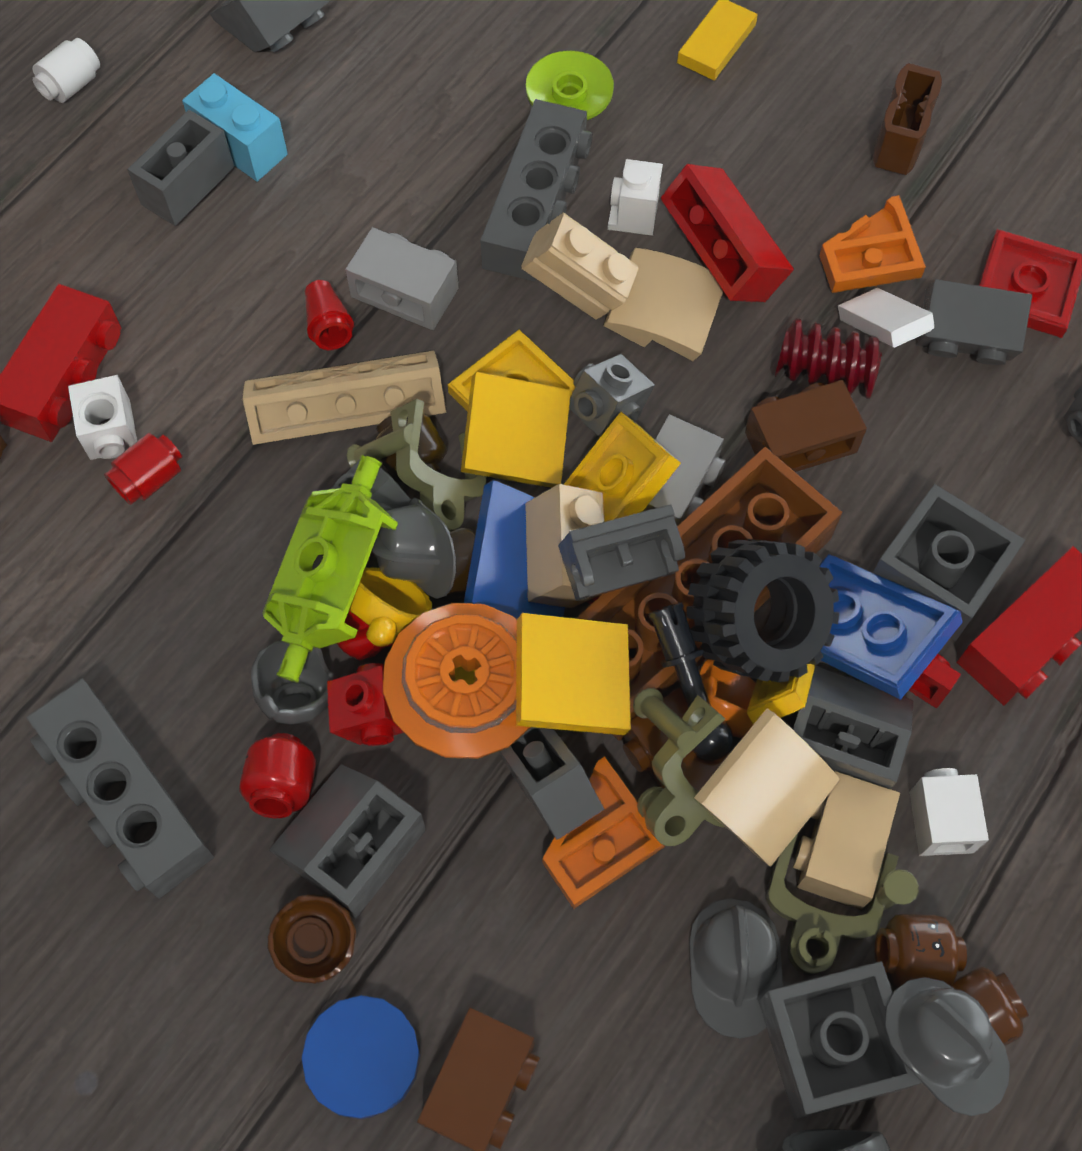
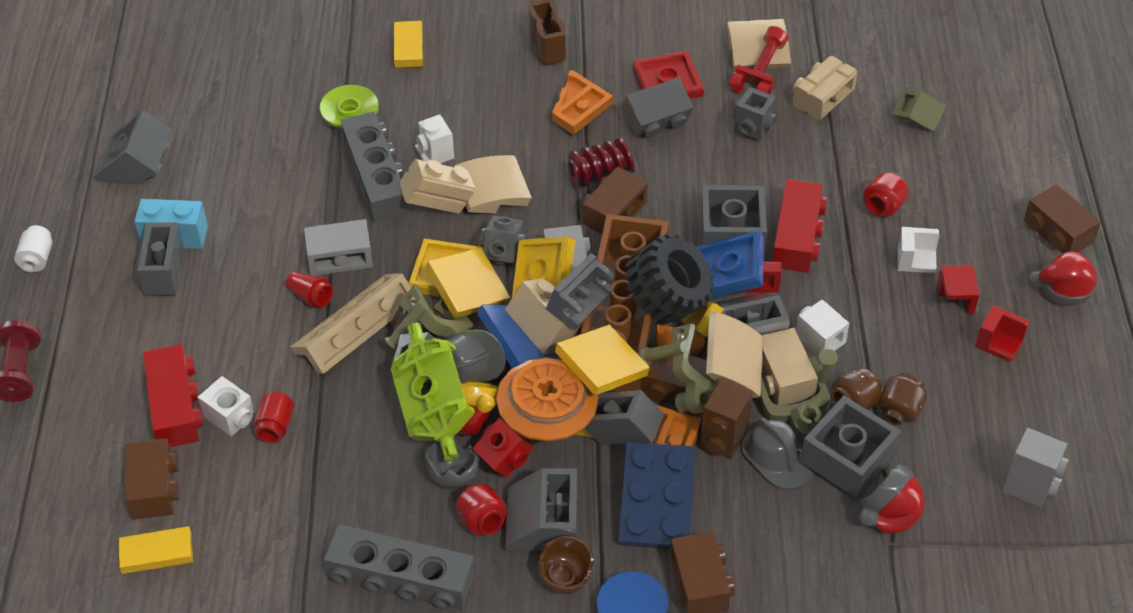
camera: 35 degrees left, 15 degrees down
(514, 919) = (656, 494): none -> dark blue plate
(681, 652) = (646, 321): black pin -> none
(689, 872) = (726, 418): none -> reddish brown brick
(726, 233) = (499, 132): red brick -> none
(886, 317) = (613, 127): white tile -> none
(948, 1045) = (899, 407): dark grey piece -> none

